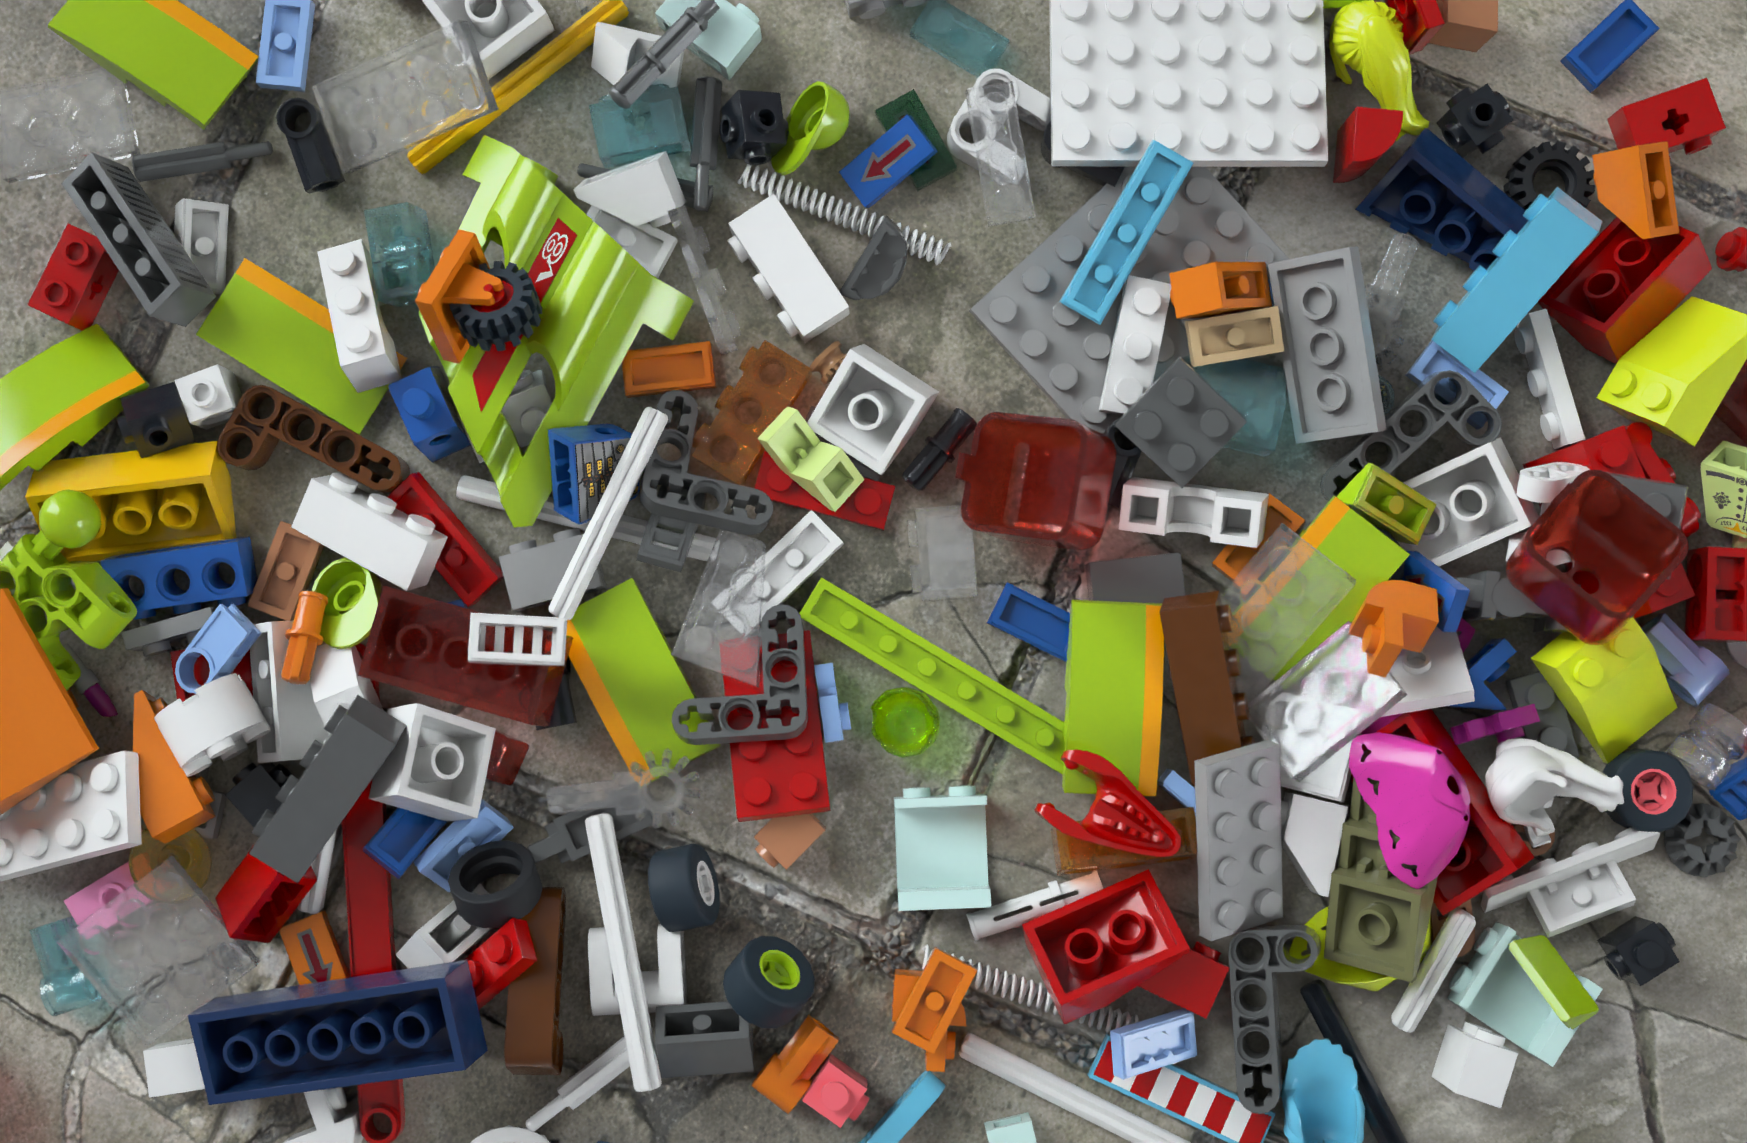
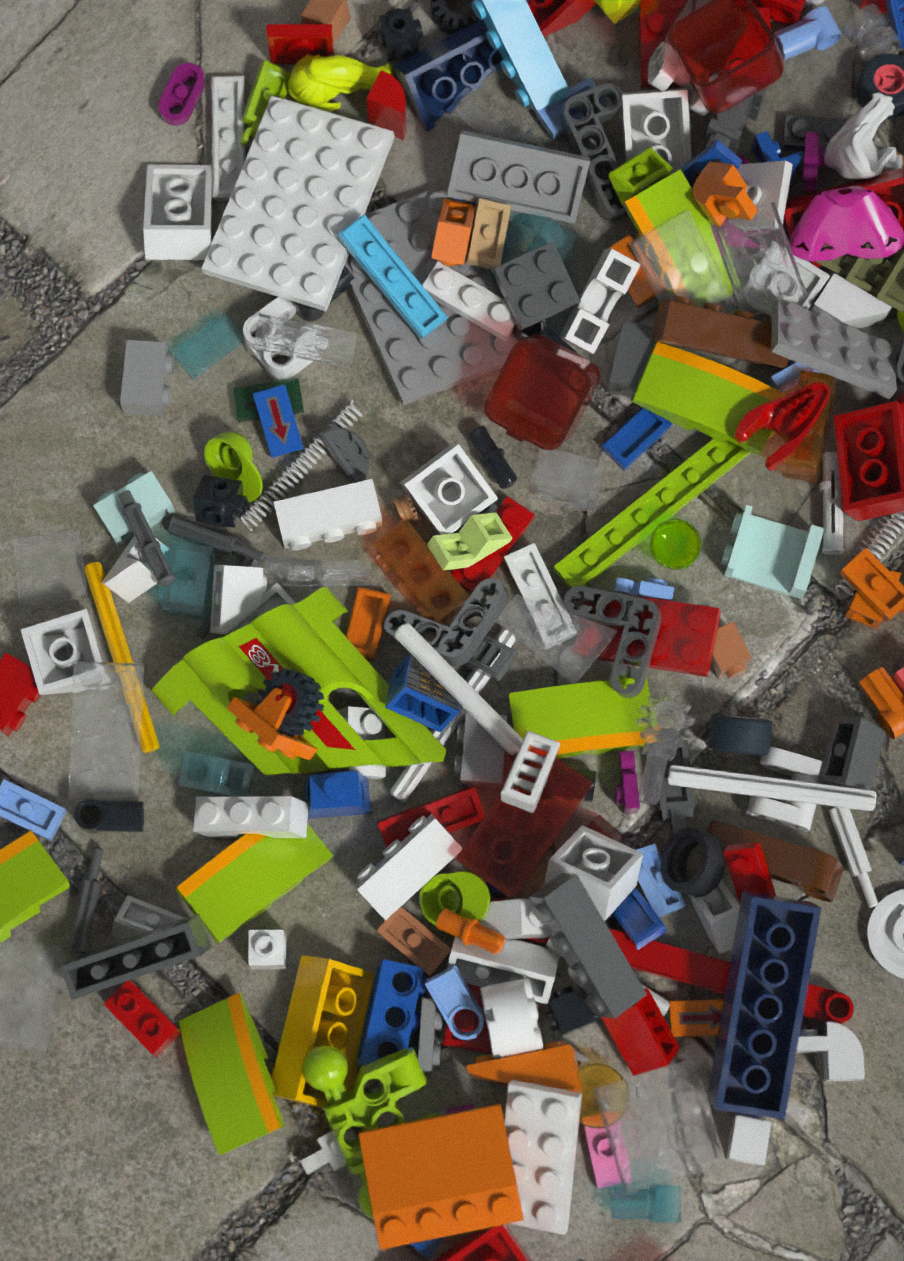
camera: 70 degrees left, 10 degrees down
(155, 420) = (270, 992): black brick -> none
(321, 445) = (334, 886): reddish brown beam -> none
(563, 769) = (627, 791): none -> magenta plate
(768, 982) = (826, 696): black wheel -> none
(1548, 380) = (593, 49): white plate -> none
(1608, 688) = (811, 84): neon yellow slope -> none

